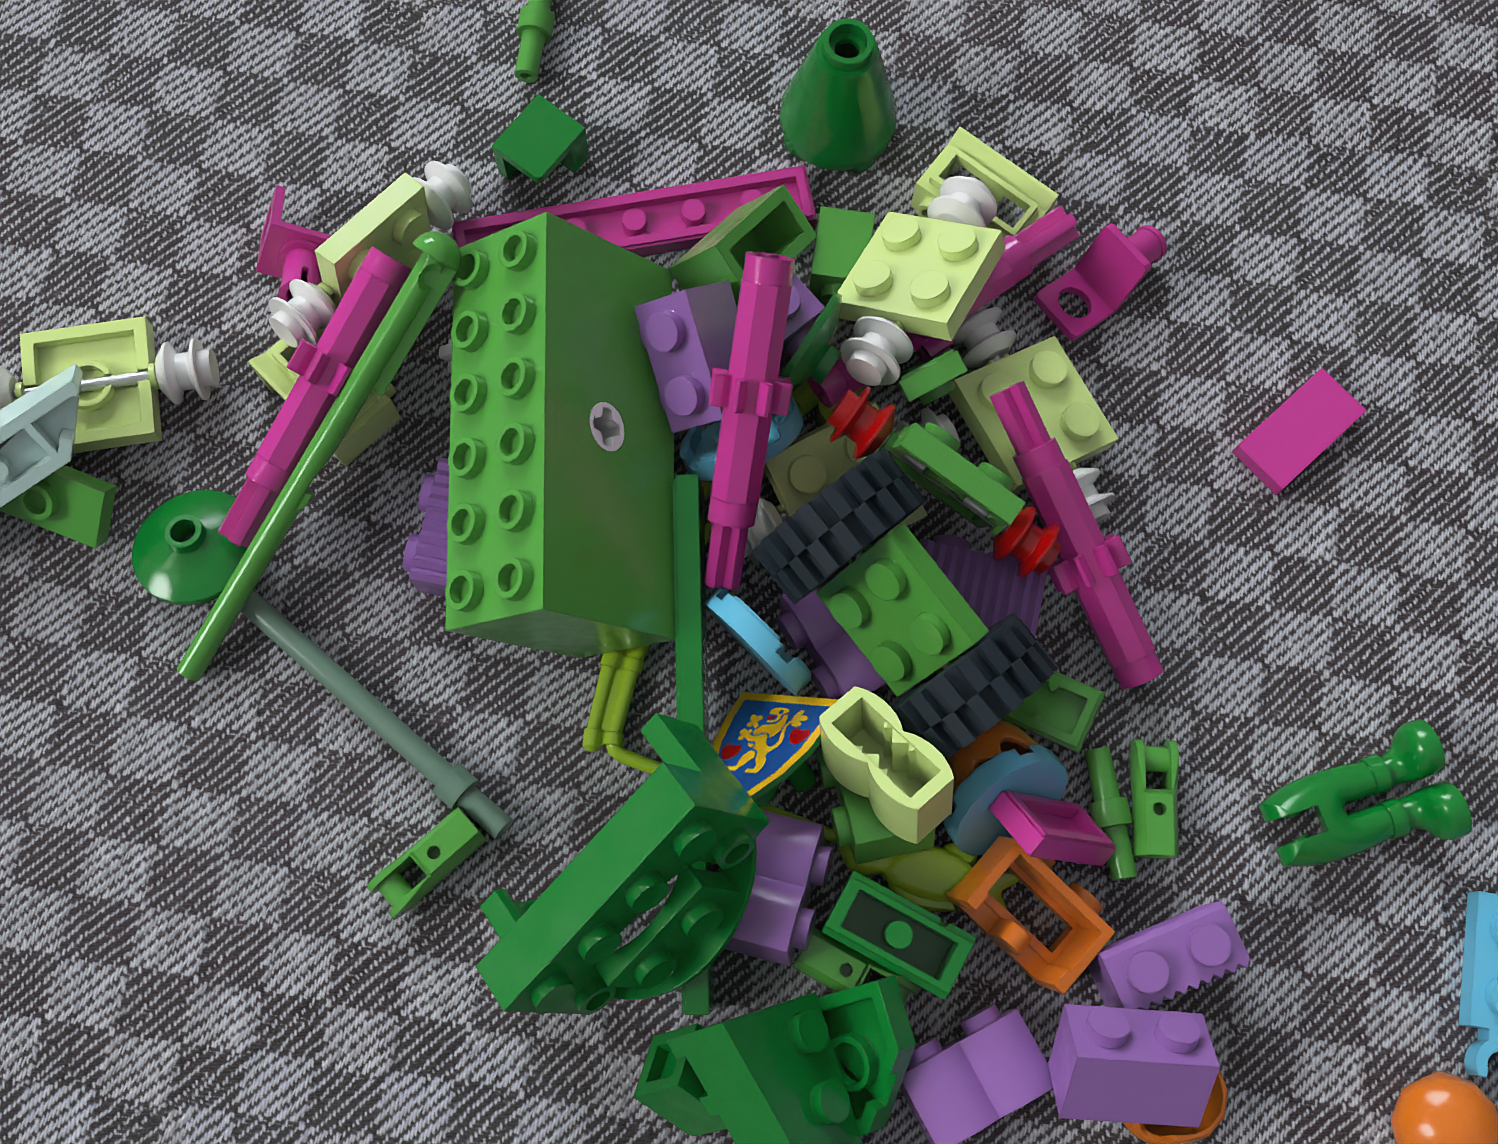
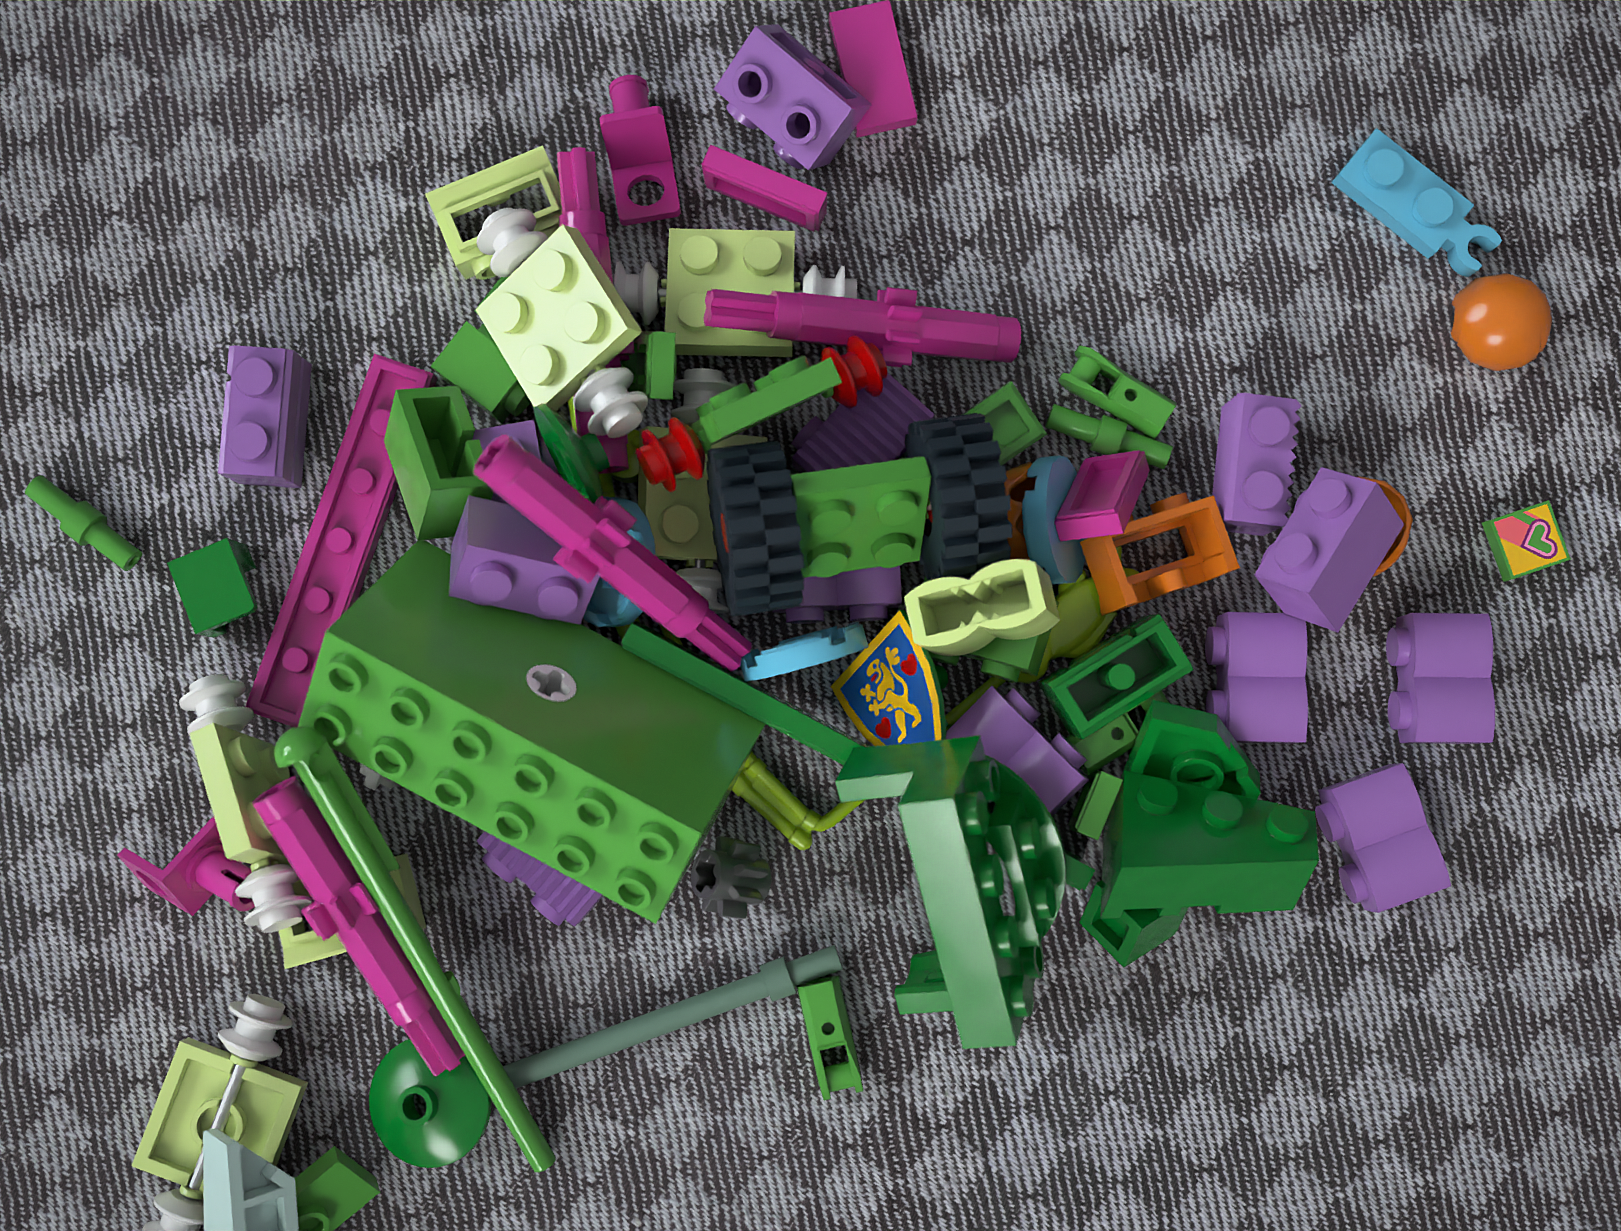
camera: 60 degrees left, 10 degrees up
(524, 692) = (731, 877): none -> flat silver gear
(701, 108) = (265, 417): none -> medium lavender brick
(769, 985) = (1094, 804): none -> bright green tile
(840, 101) = (336, 290): green cone -> none
(1138, 395) = (764, 188): none -> dark pink tile
(1229, 372) = (791, 97): none -> medium lavender brick
(1411, 757) = (1252, 168): green piece -> none

